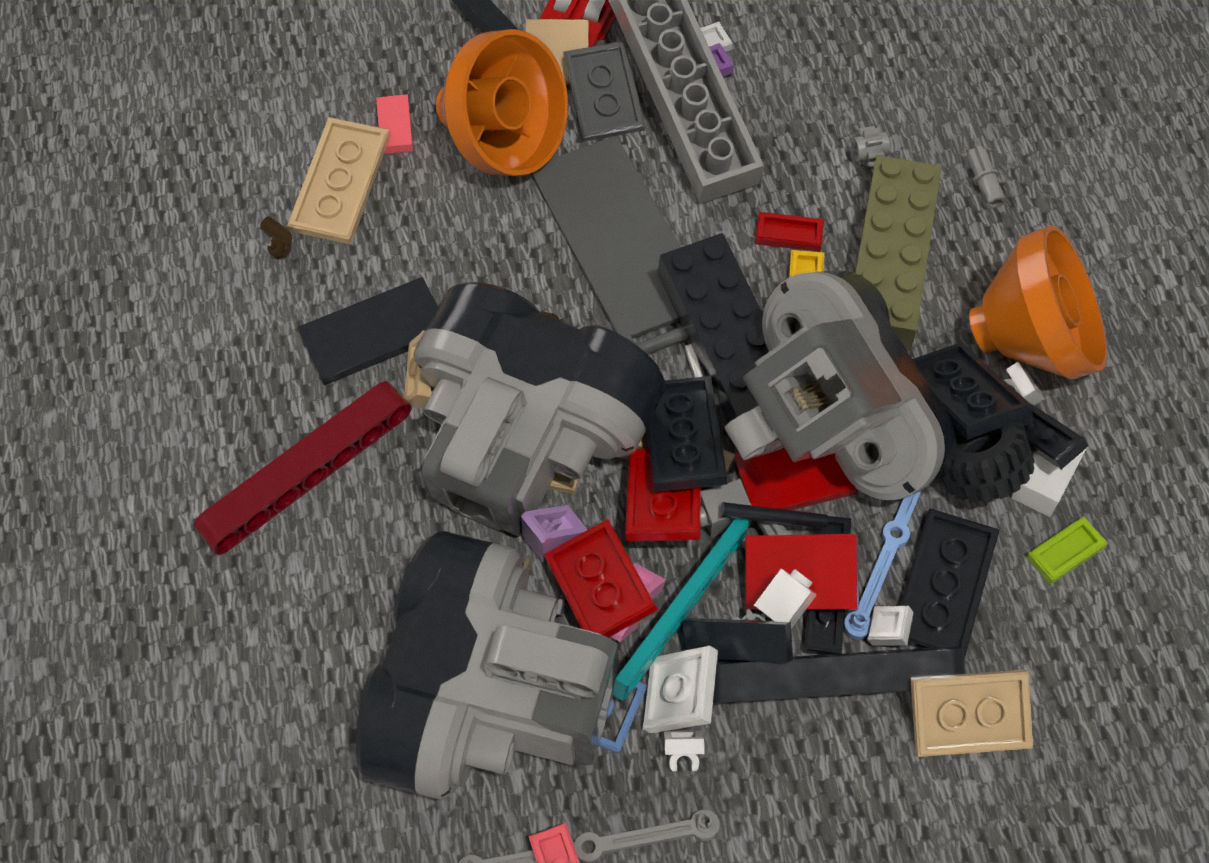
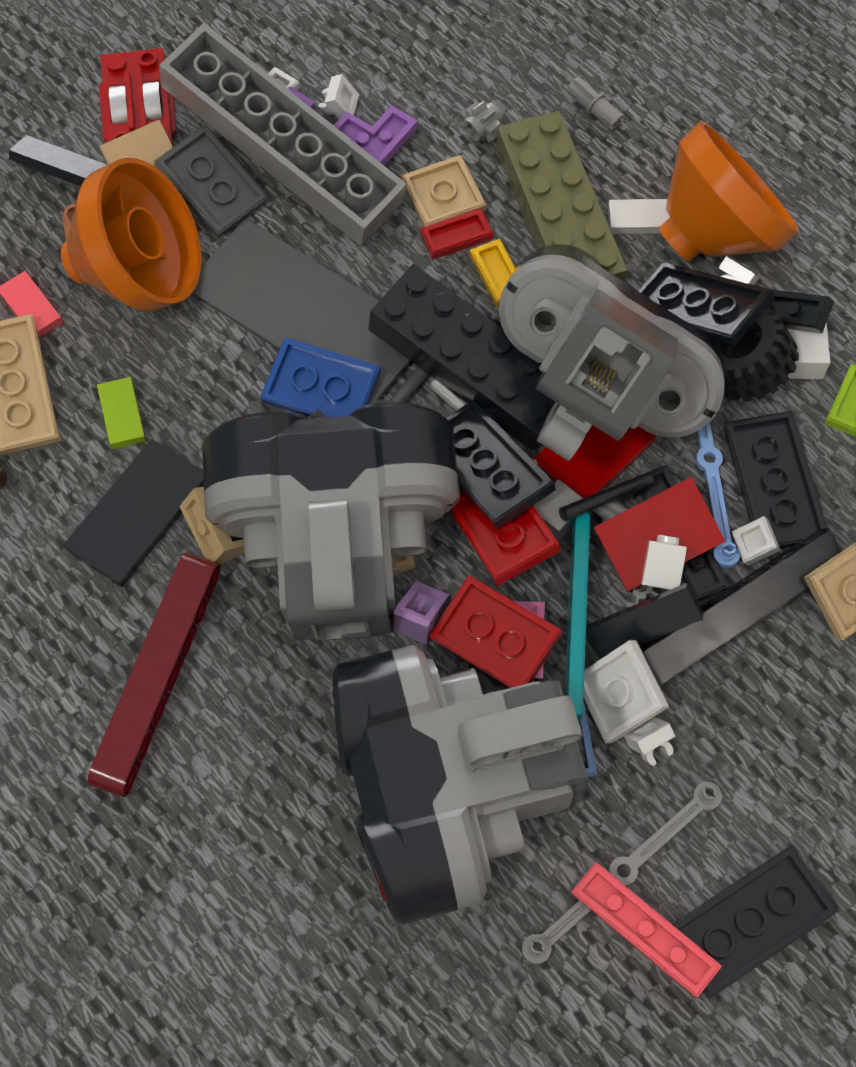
camera: 30 degrees left, 5 degrees up
(412, 245) = (121, 413): none -> lime tile
(589, 295) = (320, 379): none -> blue tile
(758, 72) = (339, 97): none -> white tile
(770, 123) = (383, 137): none -> medium lavender plate
(800, 189) = (443, 191): none -> tan tile
(958, 289) = (637, 216): none -> white tile

